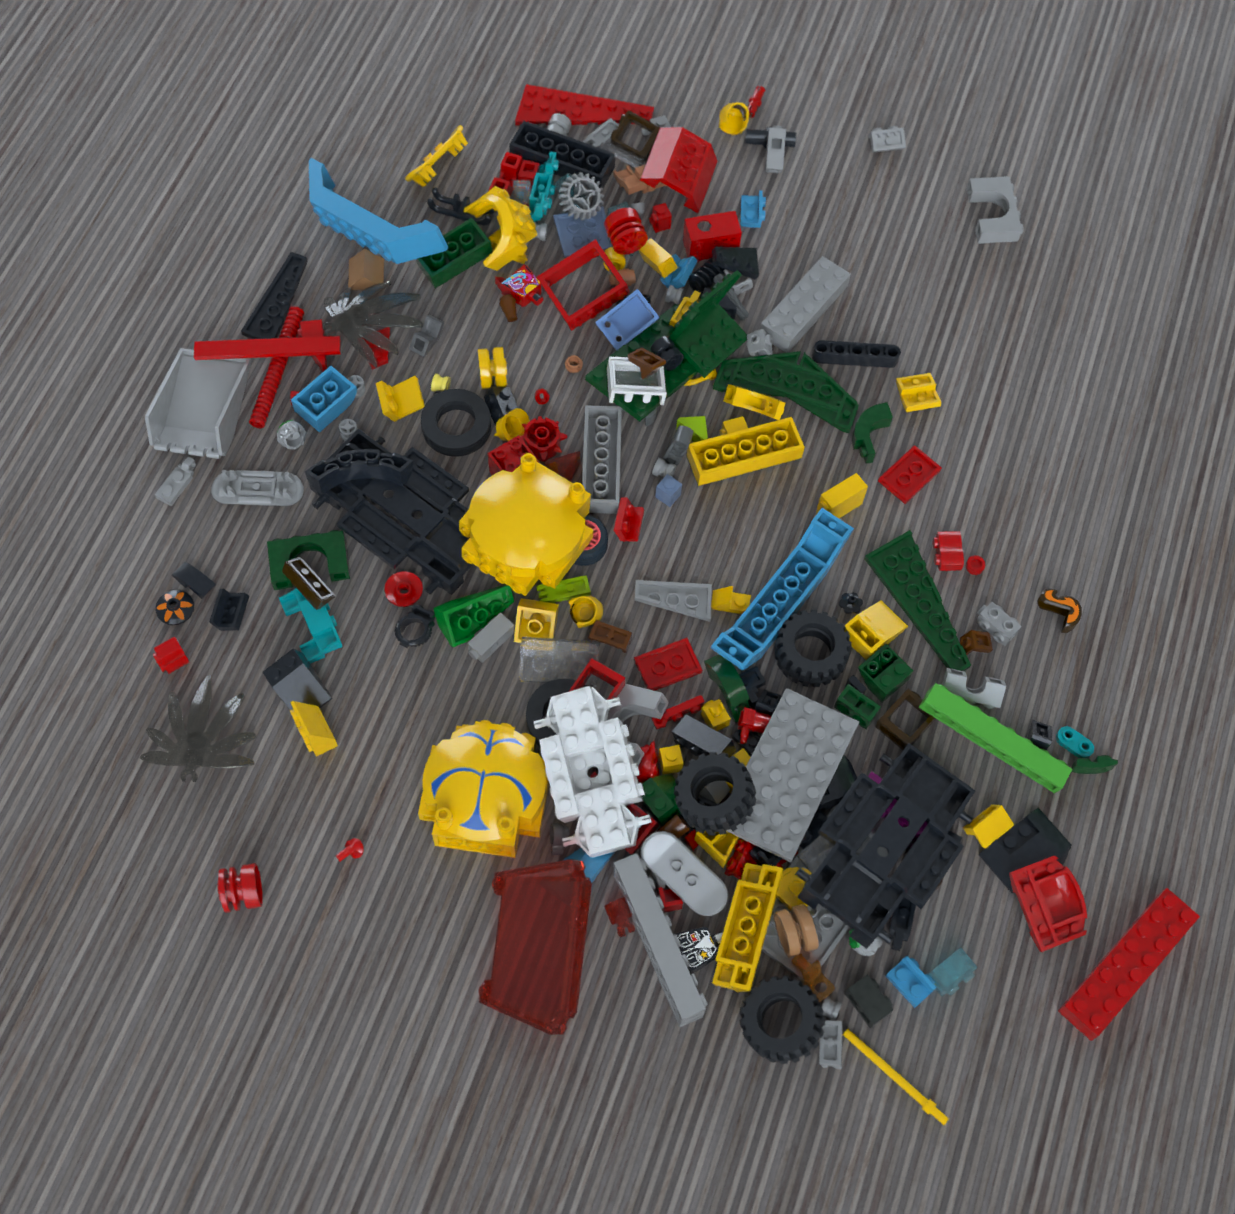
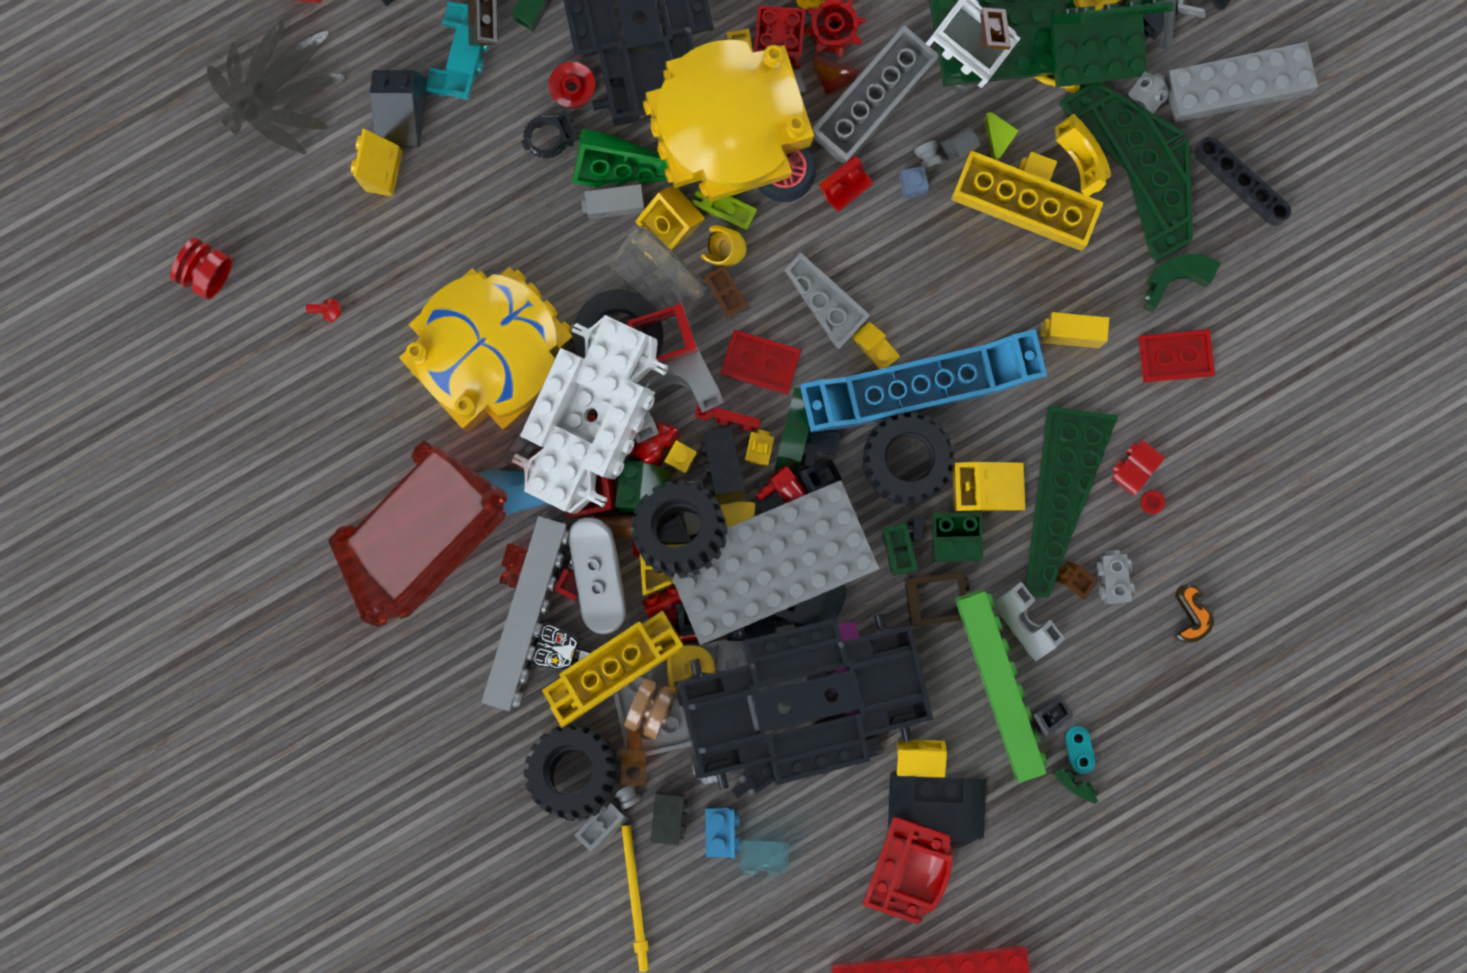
camera: 45 degrees right, 20 degrees up
(666, 349) = (1034, 32): black wheel -> none
(850, 603) = (987, 443): black plant -> none
(918, 392) = (1269, 274): yellow slope -> none

